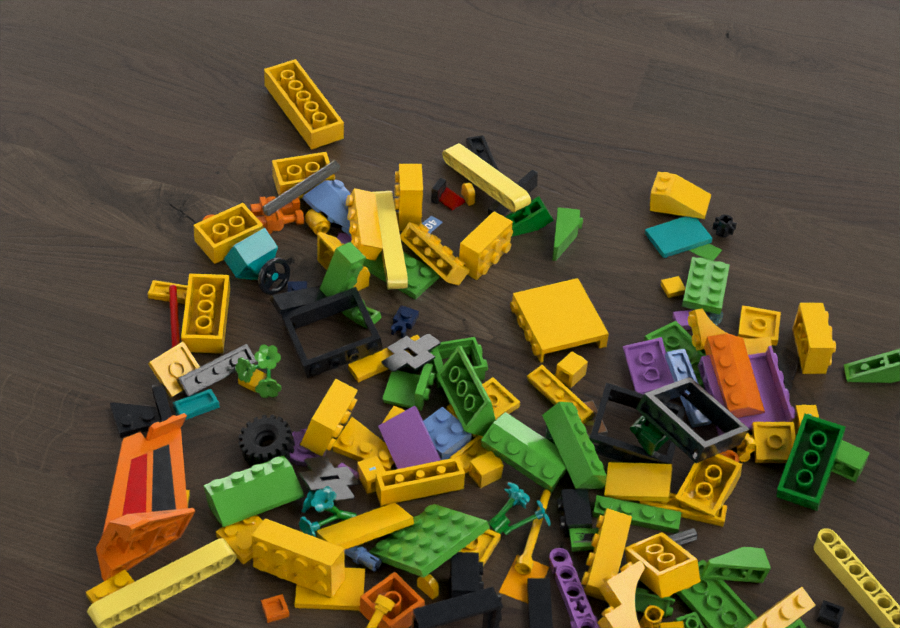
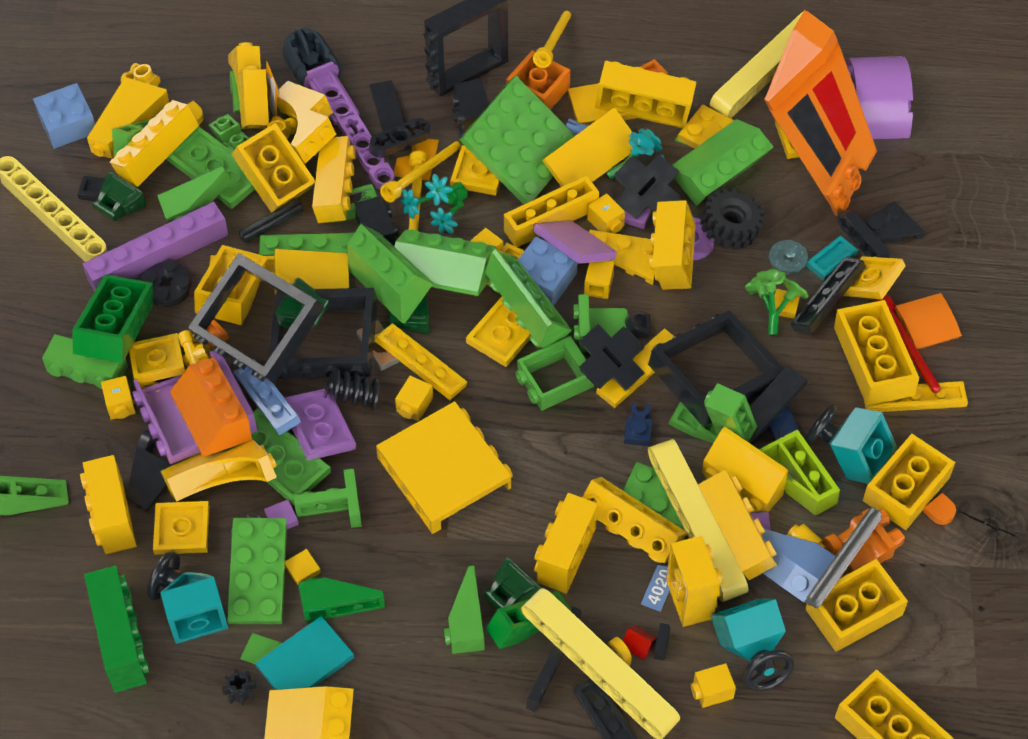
camera: 170 degrees right, 10 degrees up
(72, 529) = (884, 94): none -> medium lavender cylinder
(148, 337) = (928, 321): none -> orange slope
(238, 405) = (791, 249): none -> clear light blue gear
(303, 255) = (806, 477): none -> lime wedge
(376, 387) = (639, 323): none -> black tile
(379, 168) = (753, 633): none -> teal piece
(416, 157) = (713, 685): none -> yellow brick
(528, 240) = (512, 583): none -> dark green piece
(533, 591) = (393, 145): none -> black beam
(556, 521) = (392, 190): none -> yellow piece
(622, 379) = (352, 388): none -> black piece
(646, 315) = (331, 500): none -> bright green bracket
(651, 258) = (336, 598): none -> green slope
(754, 265) = (188, 599): none -> teal piece
(768, 499) = (168, 271): none -> black plate
(774, 530) = (166, 242): none -> medium lavender brick
(807, 263) = (117, 628): none -> green brick
(812, 586) = (119, 194): none -> dark green piece

